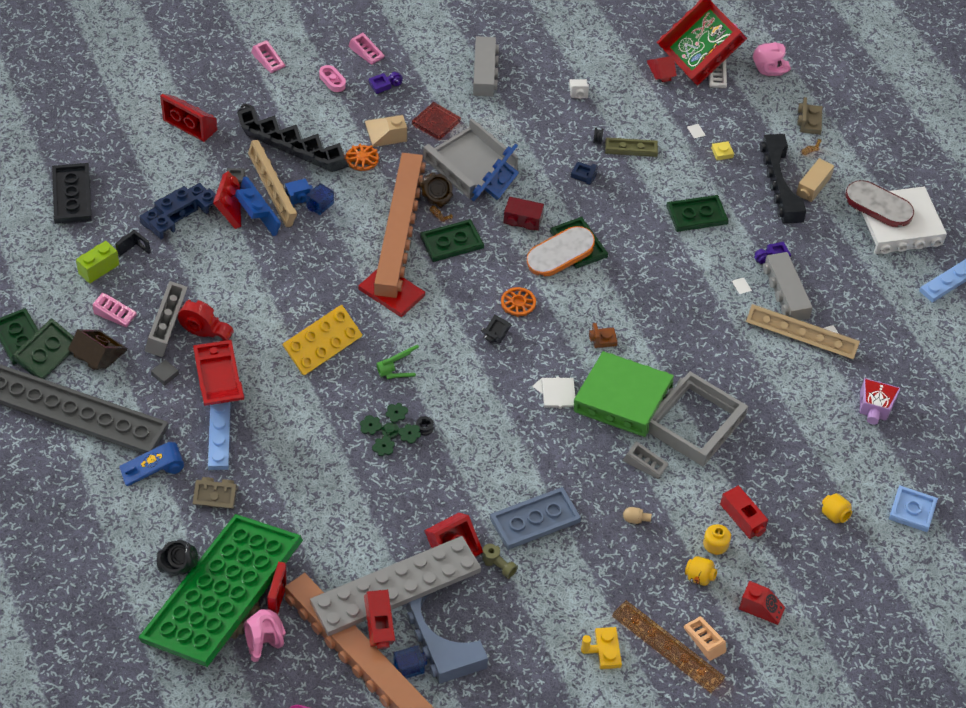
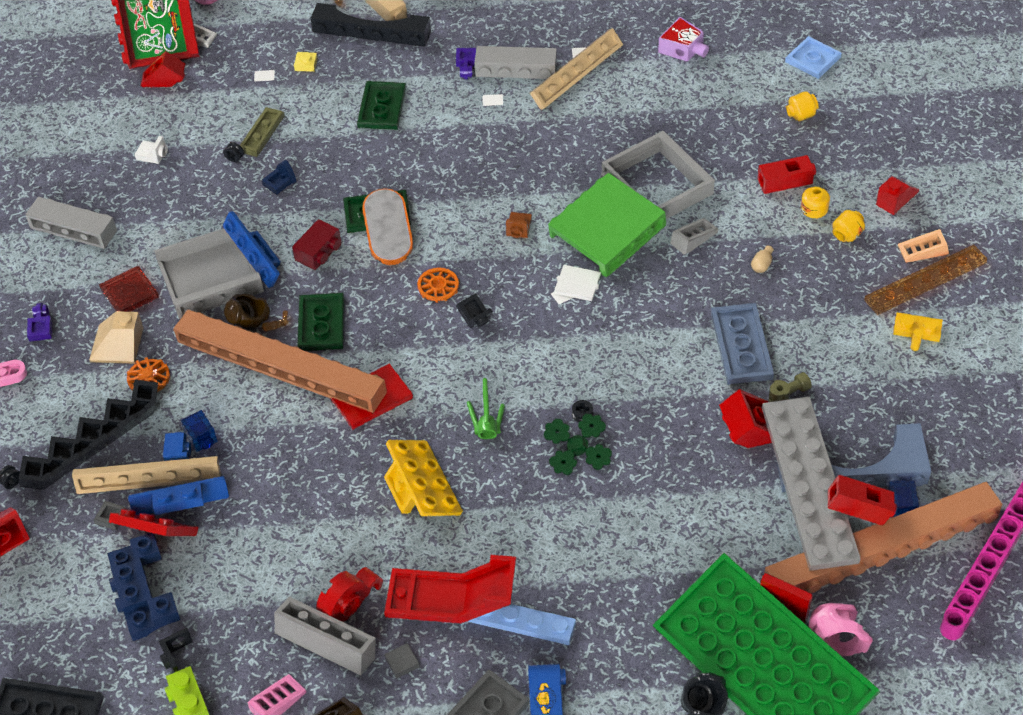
camera: 65 degrees left, 0 degrees up
(215, 493) = (614, 640): dark tan bracket -> none

